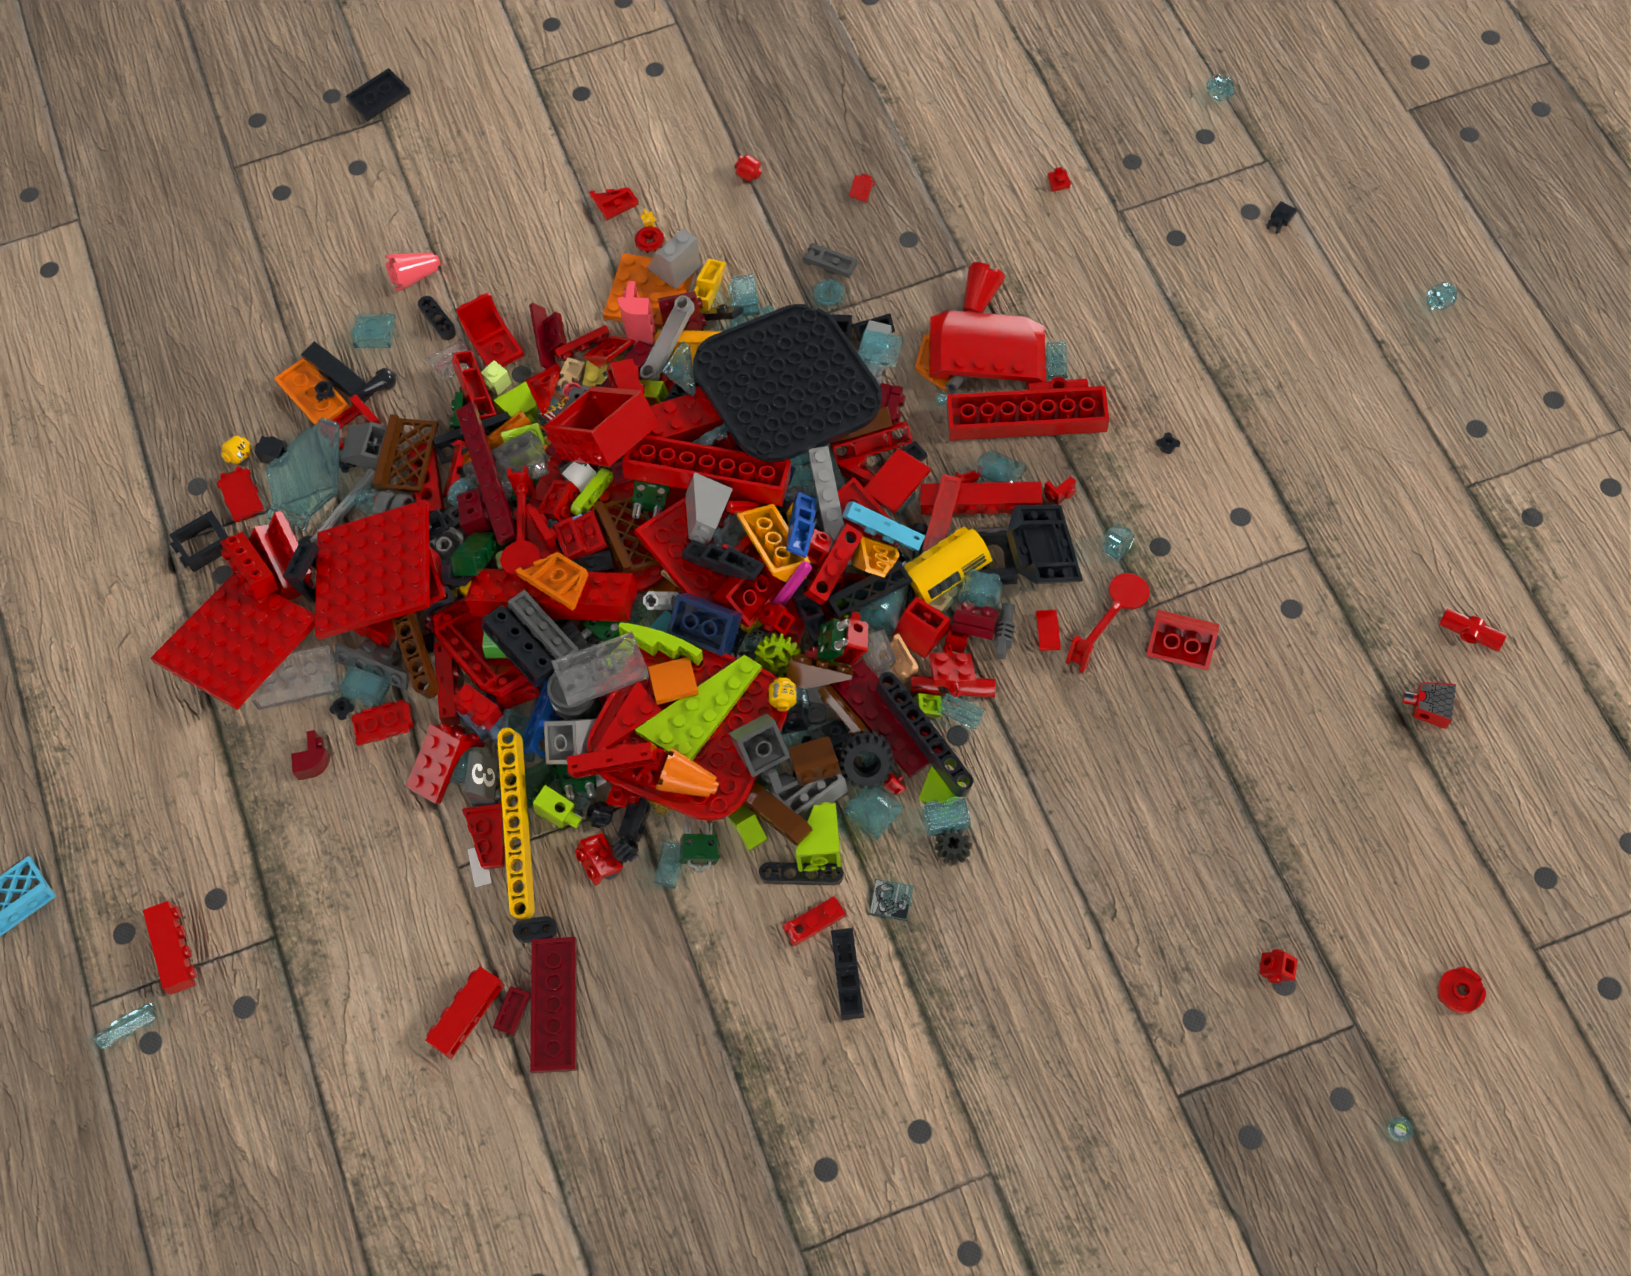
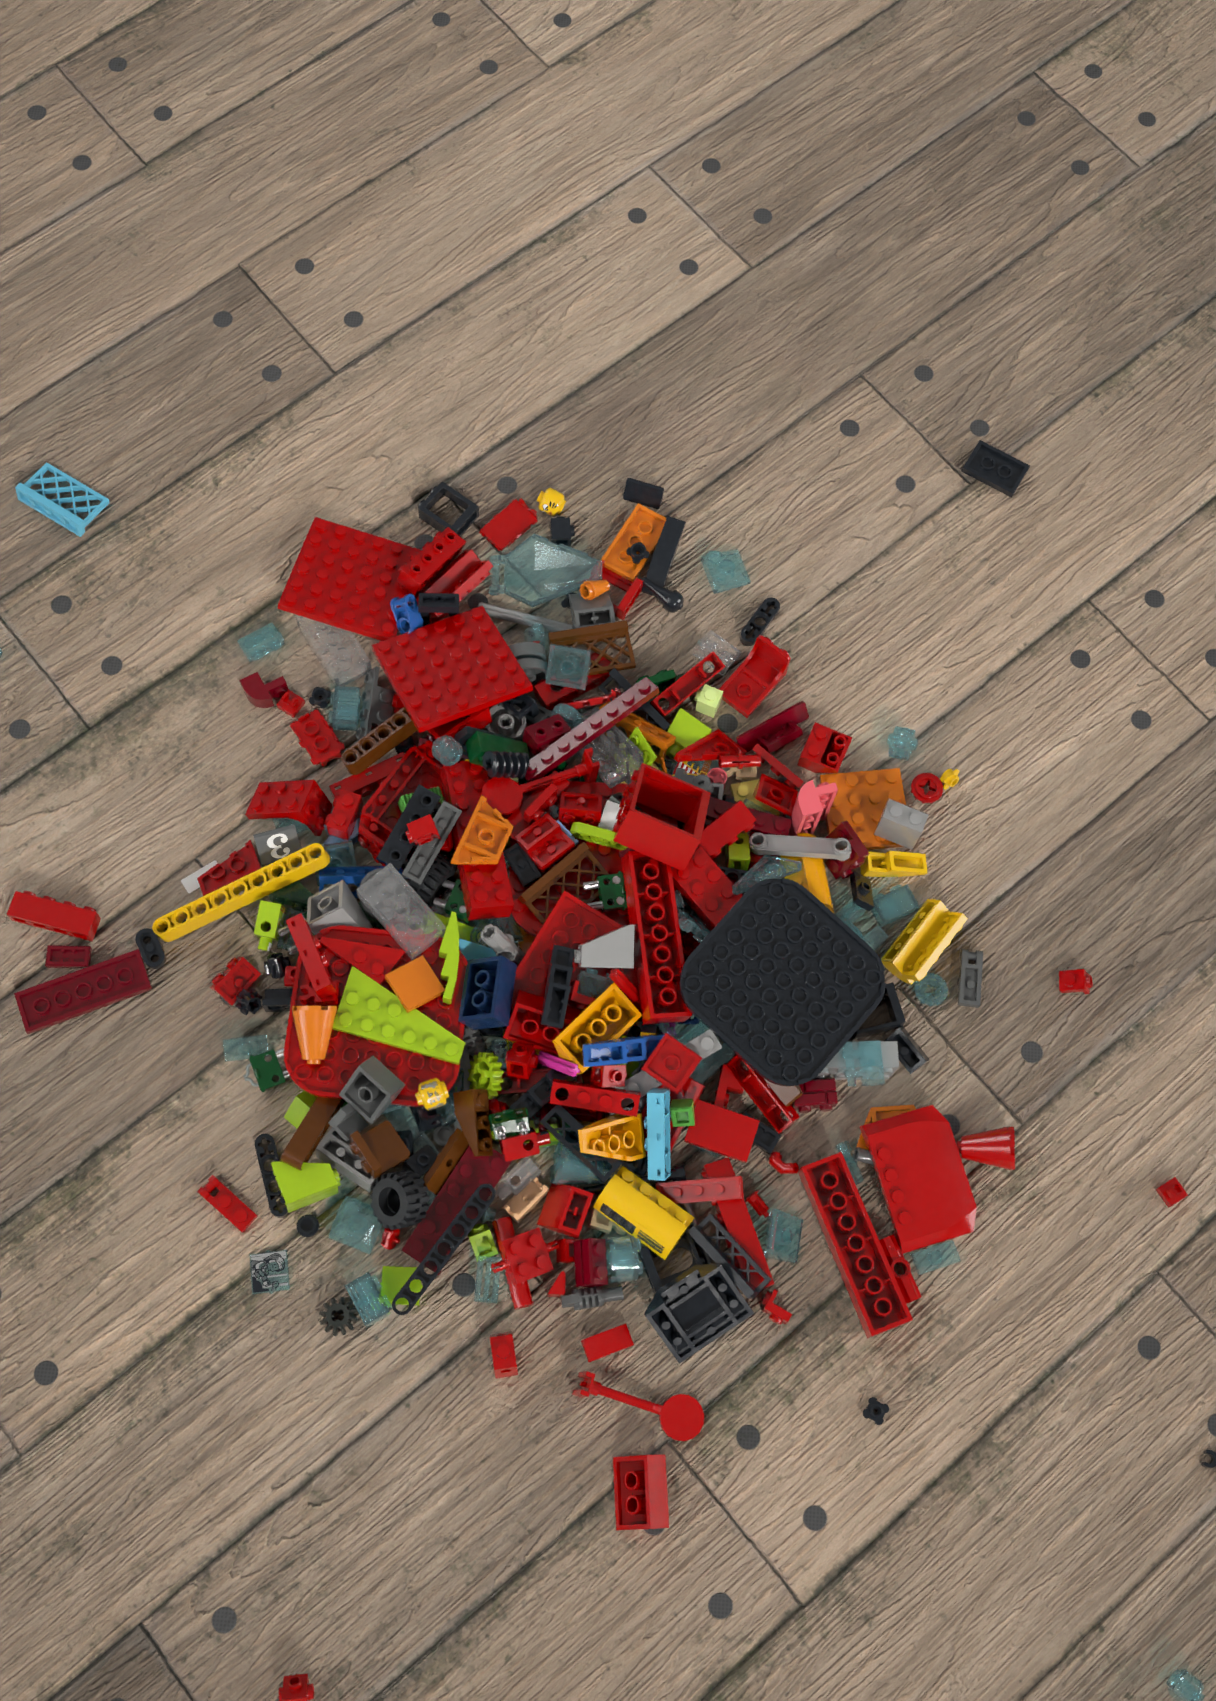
camera: 60 degrees right, 5 degrees up
(169, 947) = (52, 645): red brick -> none
(258, 748) = (261, 642): none -> clear light blue bracket
(265, 371) = (643, 493): none -> black slope
(293, 595) = (407, 615): none -> blue piece
(335, 737) = (290, 703): none -> red tile
(345, 433) = (593, 588): none -> orange cone
(410, 268) = (803, 576): coral cone -> none
(415, 473) = (568, 666): none -> clear light blue slope
(457, 590) = (447, 750): none -> clear light blue head
(493, 543) = (506, 764): none -> black piece
(531, 624) = (422, 830): none -> red window
(565, 368) = (739, 761): none -> red pin
(582, 302) = (824, 750): none -> red slope
(602, 241) = (902, 743): none -> clear light blue brick
(614, 201) = (957, 737): red wing -> none
(748, 168) = (1051, 856): red head -> none
(785, 277) = (922, 941): none -> yellow brick
(827, 490) = (671, 1063): none -> red tile
(847, 974) = (181, 1253): black slope -> none
(859, 853) = (307, 1226): none -> black plate
(871, 500) = (682, 1112): none -> bright green slope
(941, 450) = (776, 1162): none -> red arm
(985, 653) = (558, 1287): none -> red slope
(1006, 514) = (718, 1256): none -> black fence
(1031, 713) = (503, 1355): none -> red torso
(1118, 541) = (734, 1389): clear light blue slope -> none

